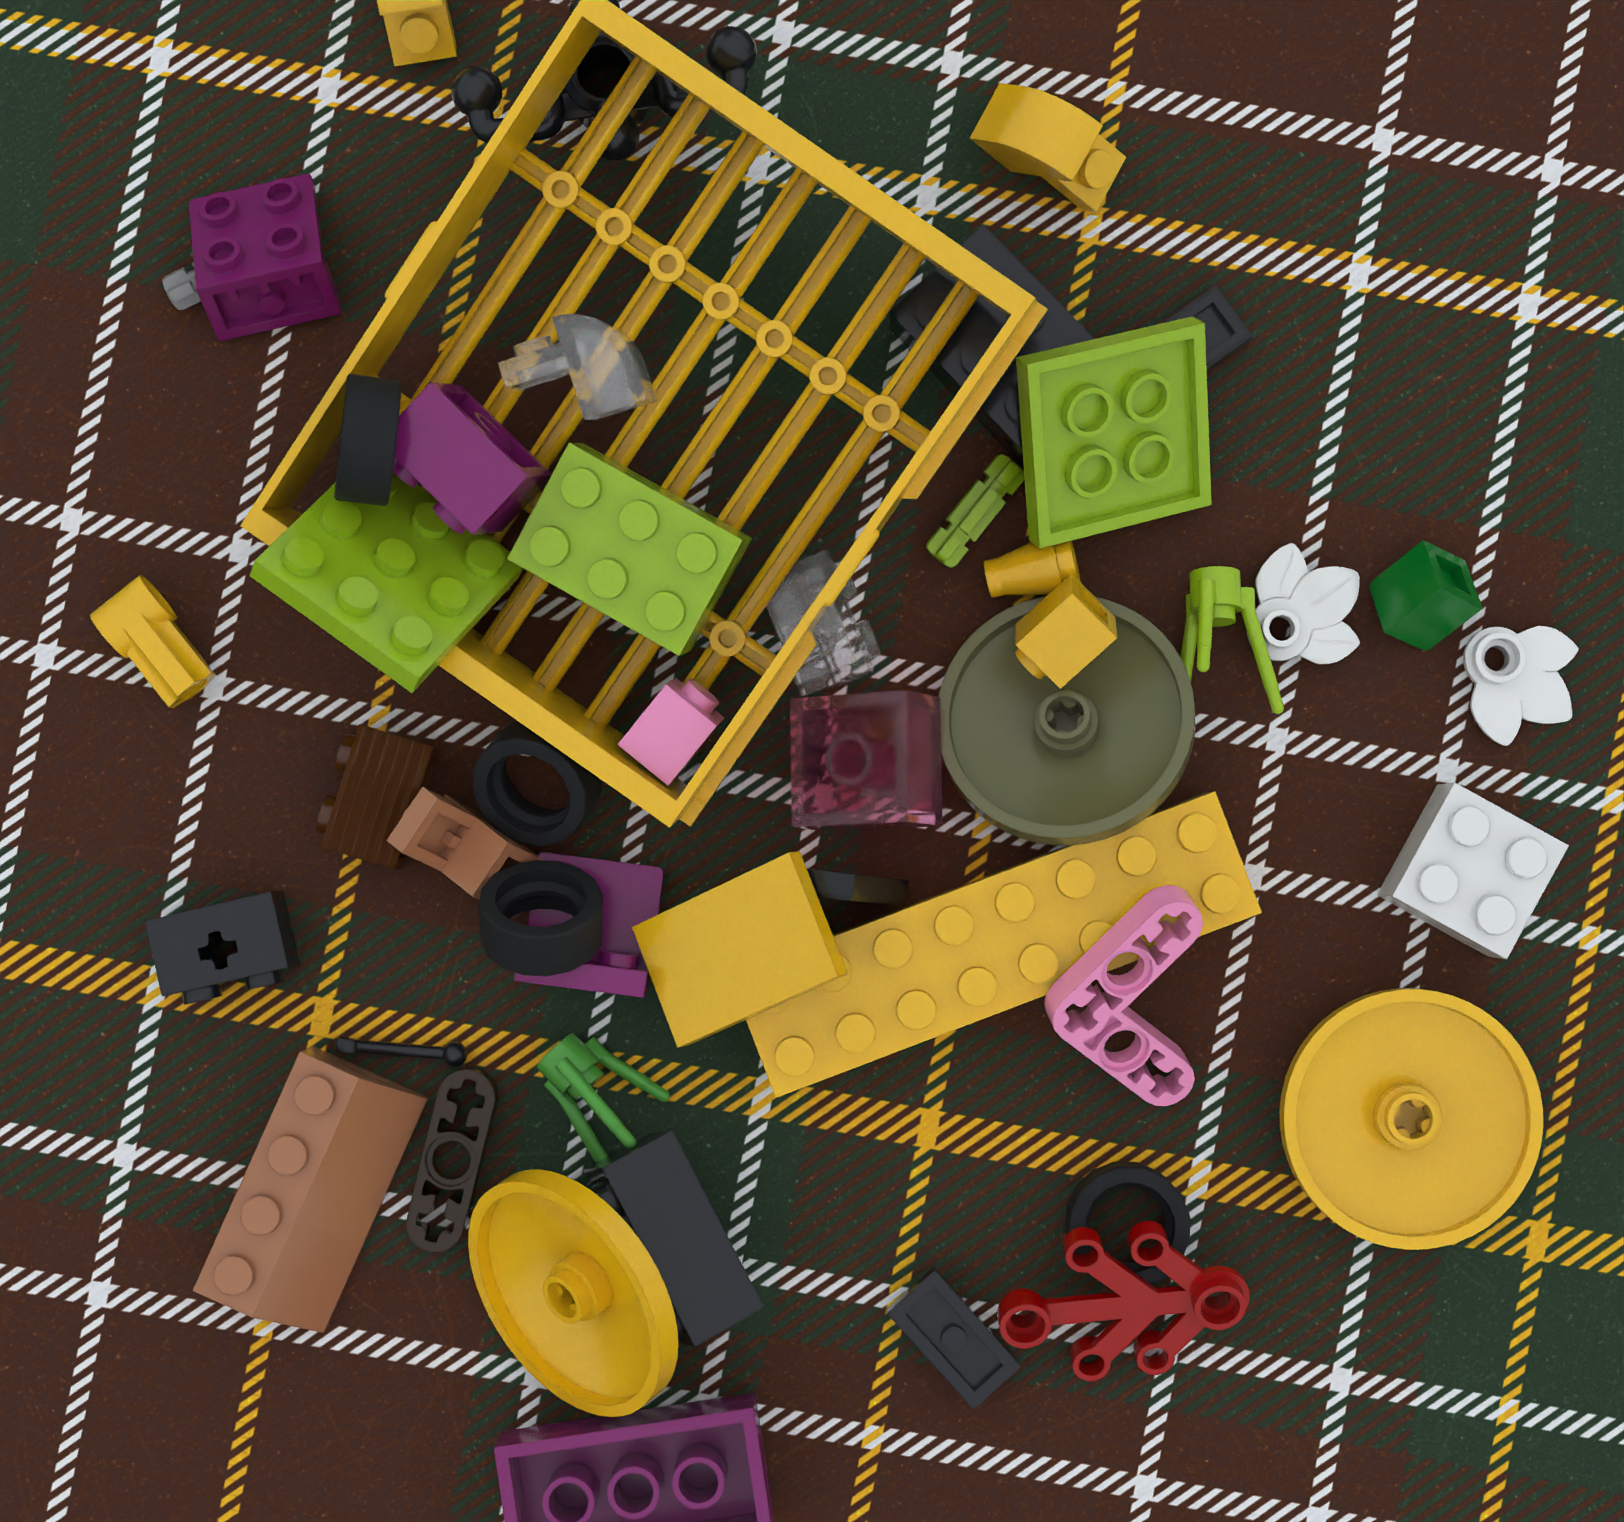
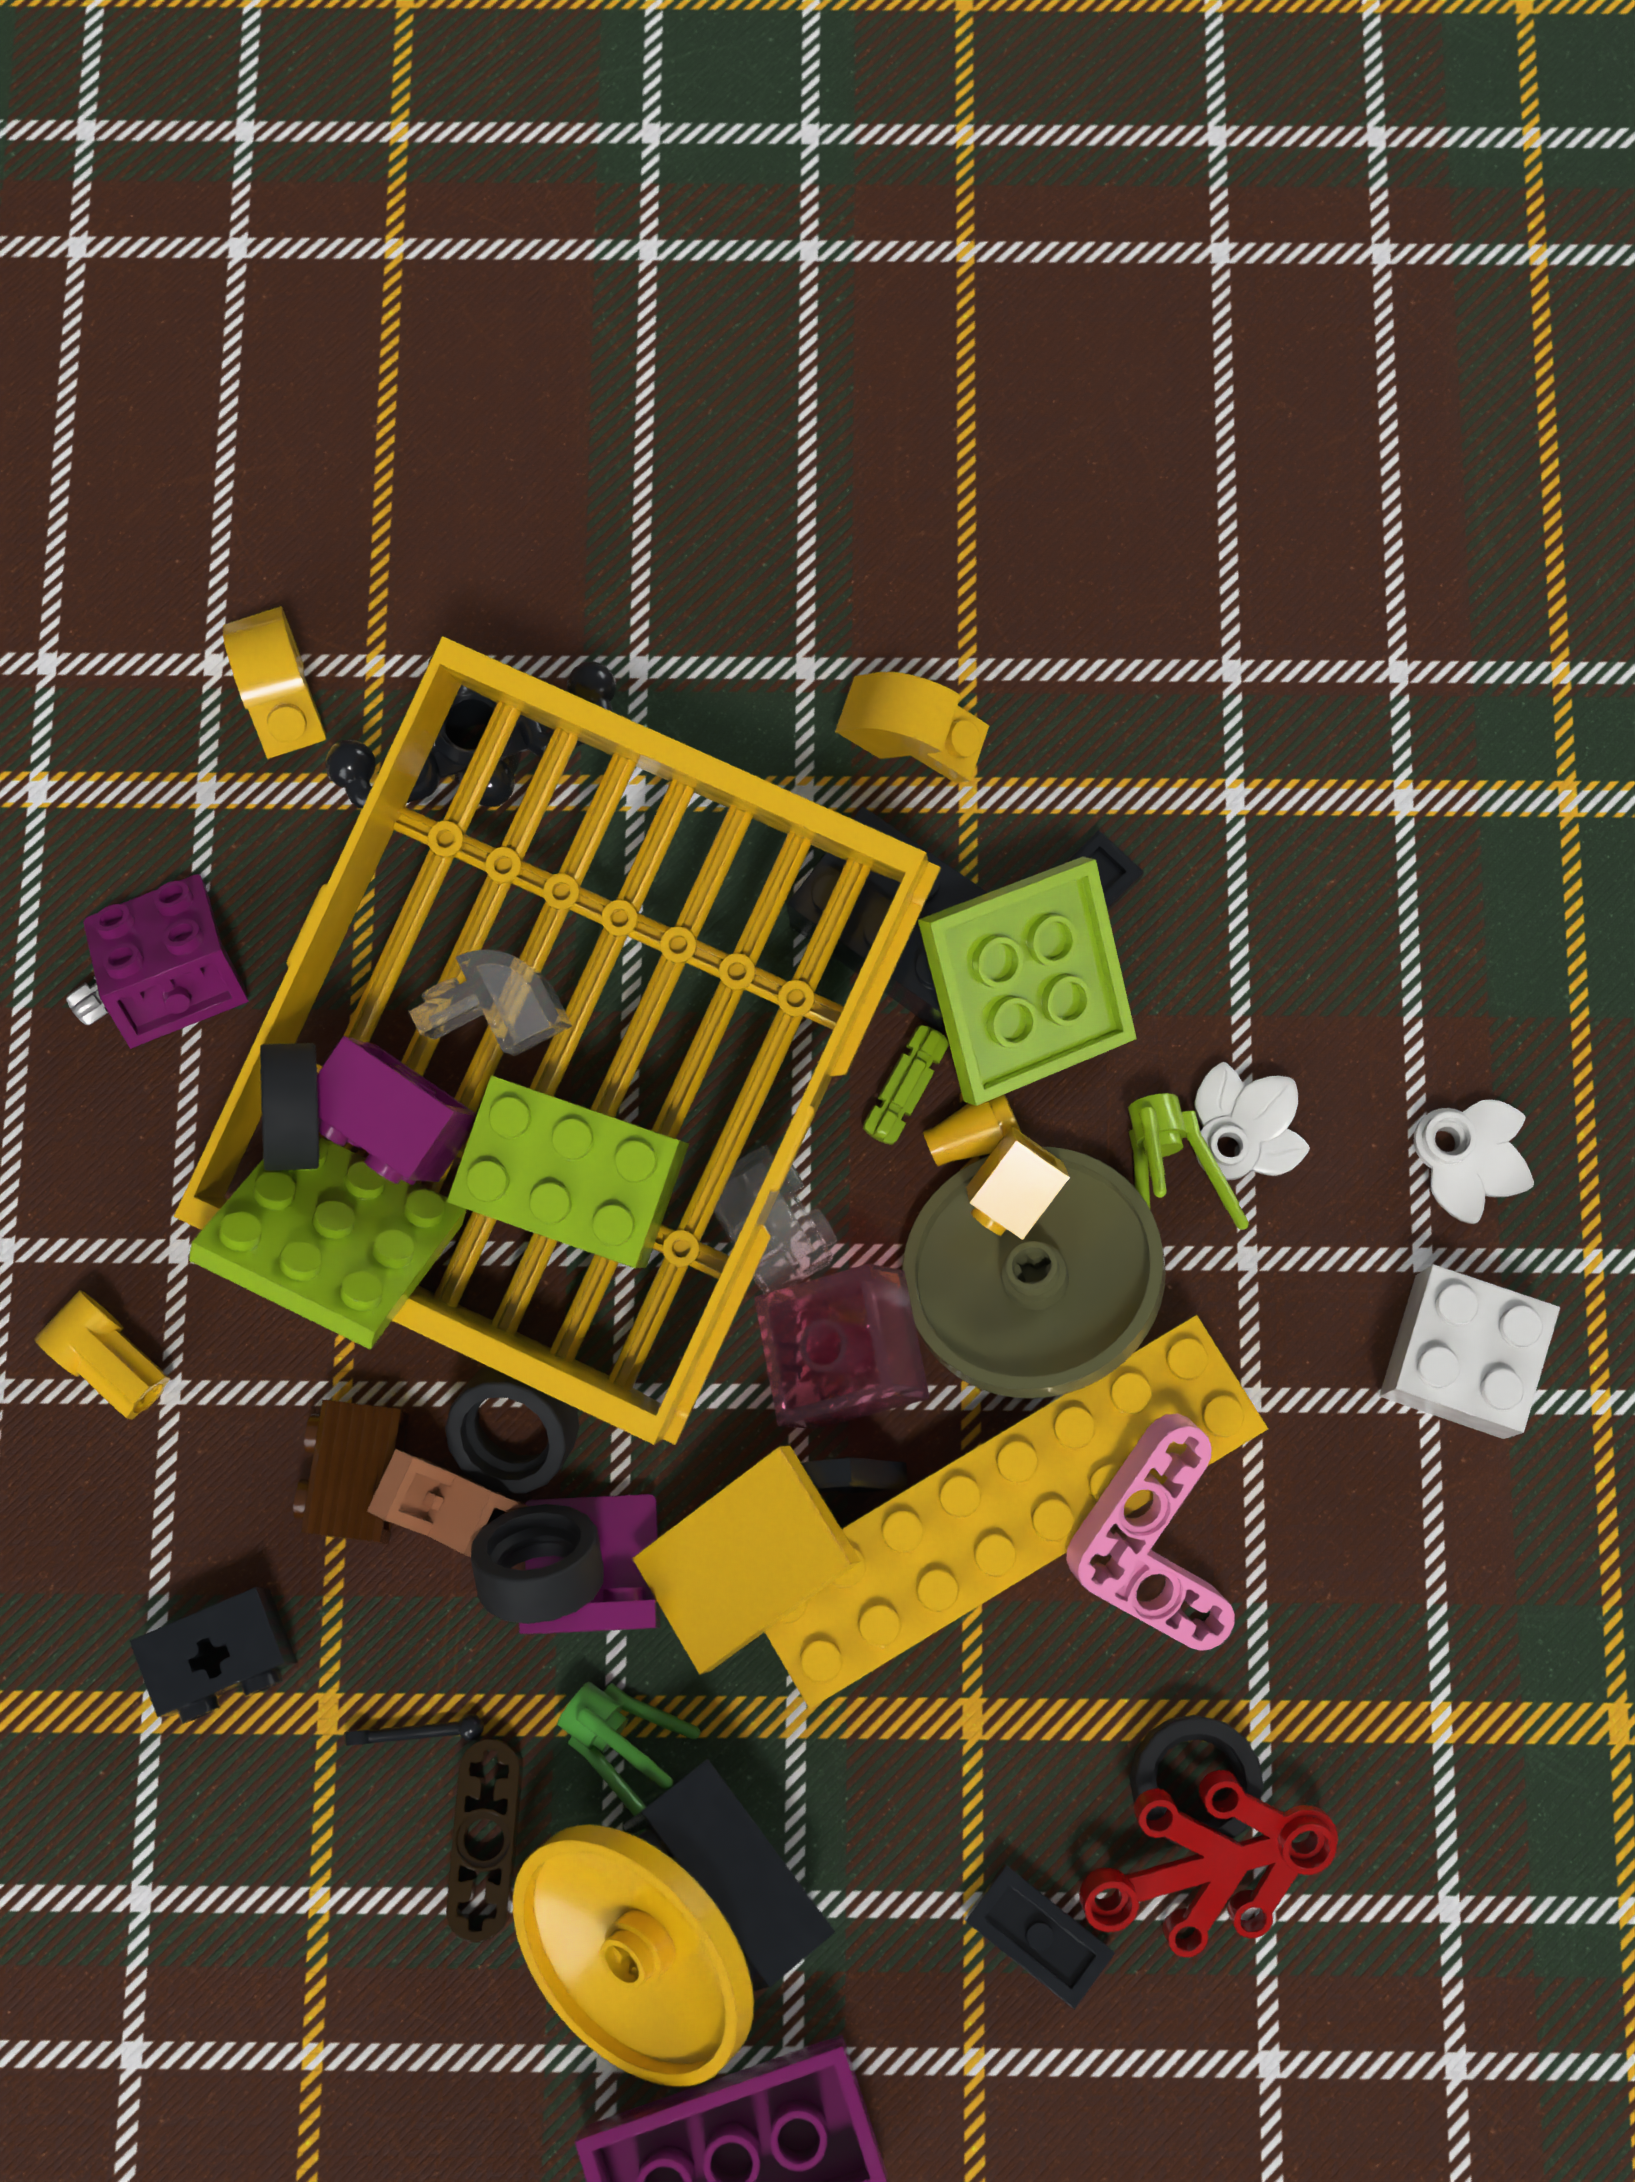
camera: 15 degrees left, 10 degrees down
(311, 1192) = (341, 1902): nougat slope -> none
(673, 729) = (641, 1347): bright pink brick -> none
(1411, 1118) = (1463, 1616): yellow dish -> none
(1424, 596) = (1363, 1090): green panel -> none

